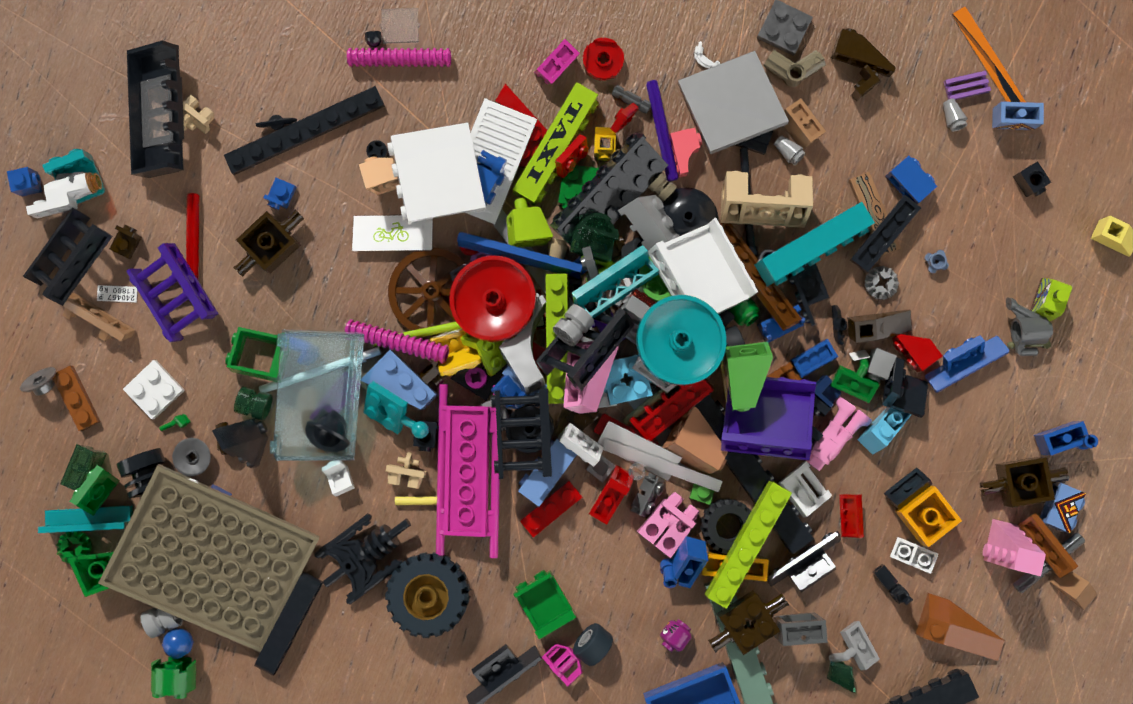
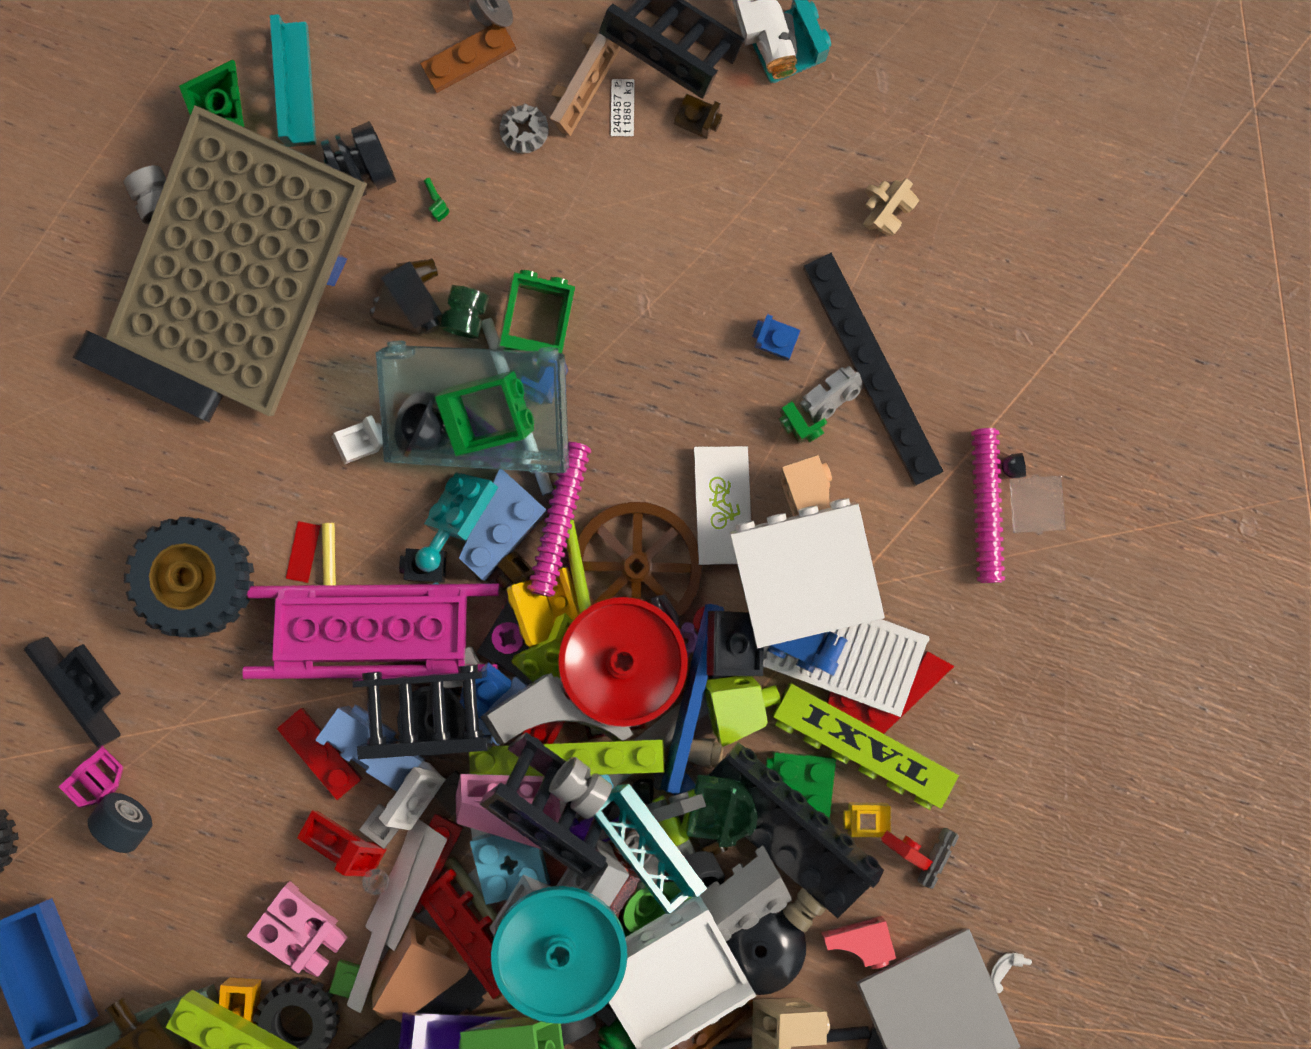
camera: 85 degrees right, 0 degrees up
(75, 537) = (247, 76): green gear -> none
(81, 463) = (365, 73): clear green hinge -> none
(94, 490) = (331, 92): green plate -> none
(137, 359) = (527, 141): none -> light grey gear
(153, 389) = (483, 167): white plate -> none
(155, 109) = (893, 151): black window -> none
(173, 677) = (68, 216): green brick -> none
(177, 643) = (117, 219): blue piece -> none
(184, 463) = (375, 217): flat silver piece -> none
(191, 290) = (640, 210): dark purple fence -> none
(192, 232) = (696, 213): red axle -> none
(275, 122) = (883, 327): black piece -> none
(281, 247) = (701, 304): dark brown brick -> none
(325, 407) = (458, 422): none -> green window
(326, 164) = (844, 387): none -> light grey hinge
(338, 182) = (793, 422): none -> green bracket
(359, 558) = (242, 475): black bar -> none
(375, 148) = (848, 476): black wheel -> none
(415, 475) = (370, 525): tan hips -> none
(416, 518) = (303, 552): none -> red sticker
(484, 226) = (732, 645): none -> black plate
(544, 603) = (179, 748): green panel -> none
(557, 62) = (989, 743): dark pink hinge -> none
(571, 156) = (840, 767): red plate -> none
(595, 50) = (1009, 827): red plate -> none
(645, 503) = (351, 905): dark grey hinge -> none
(662, 130) = (893, 906): dark purple axle -> none
(675, 635) = (134, 945): magenta head -> none
(685, 563) = (238, 959): blue hinge -> none

